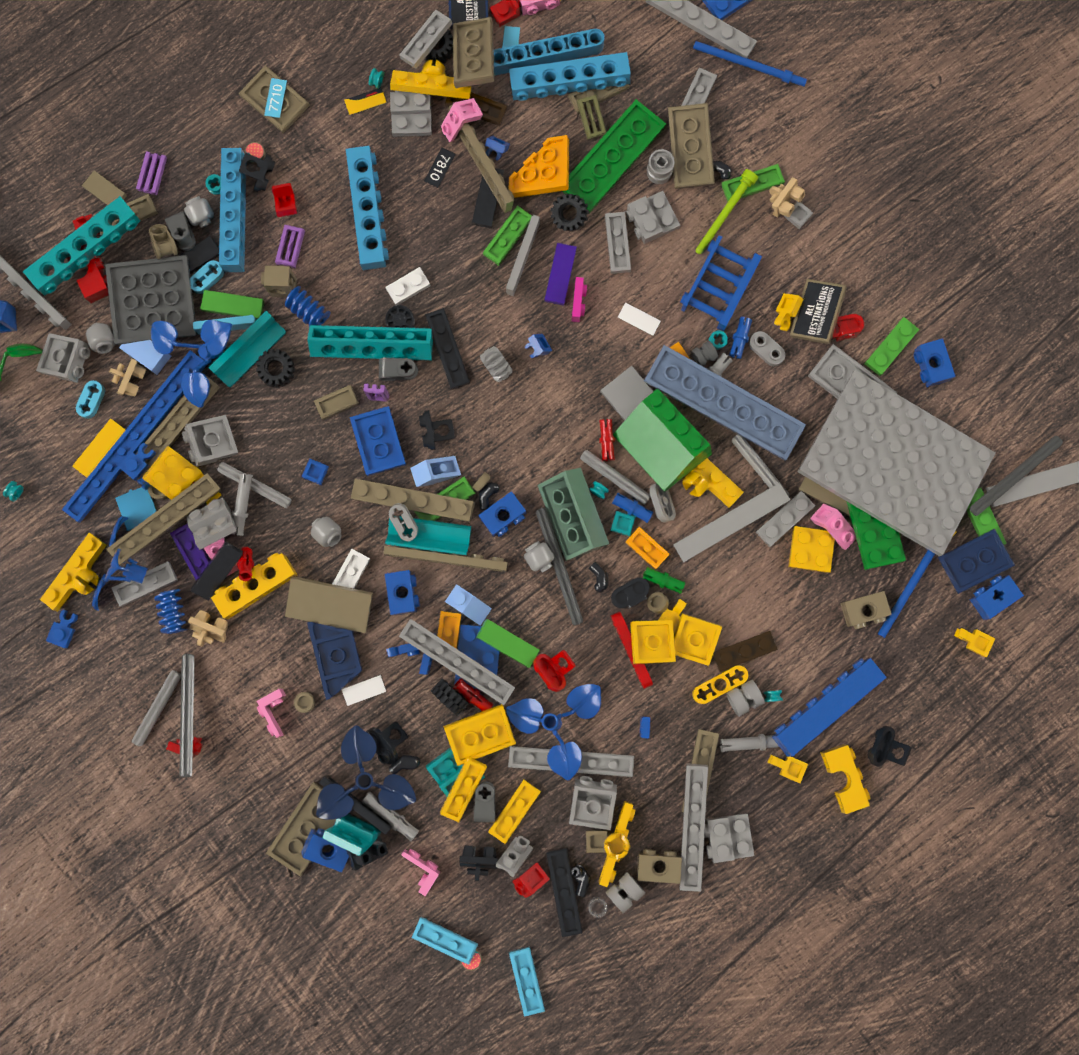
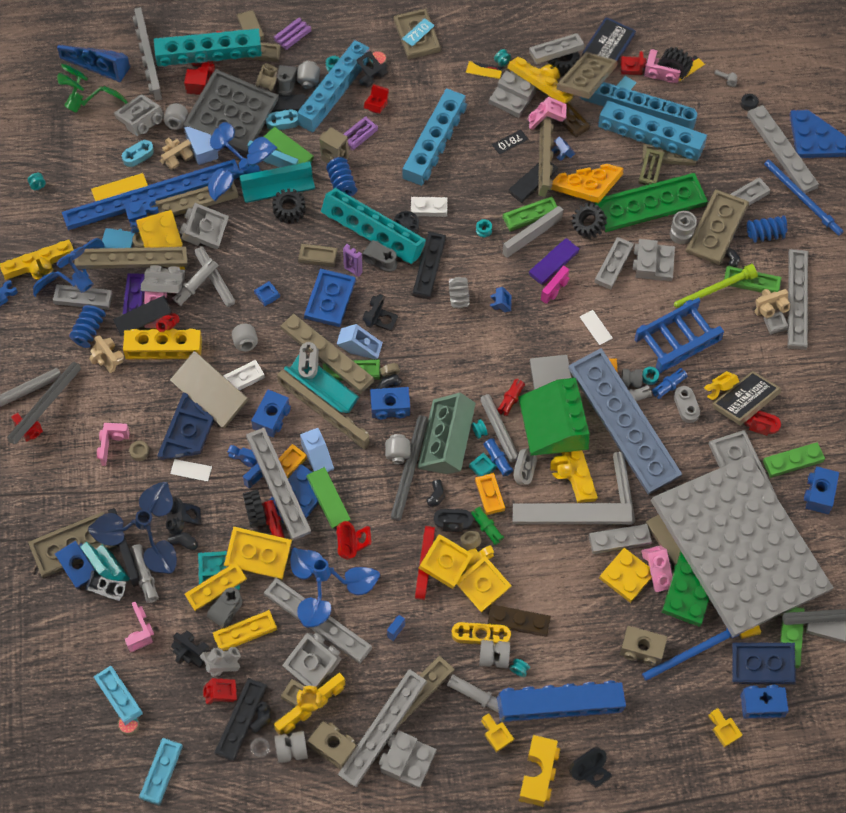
camera: 30 degrees right, 20 degrees down
(479, 279) = (484, 233): none -> teal bush
(737, 120) = (767, 228): none -> blue piece
(802, 171) = (798, 299): none -> light grey tile

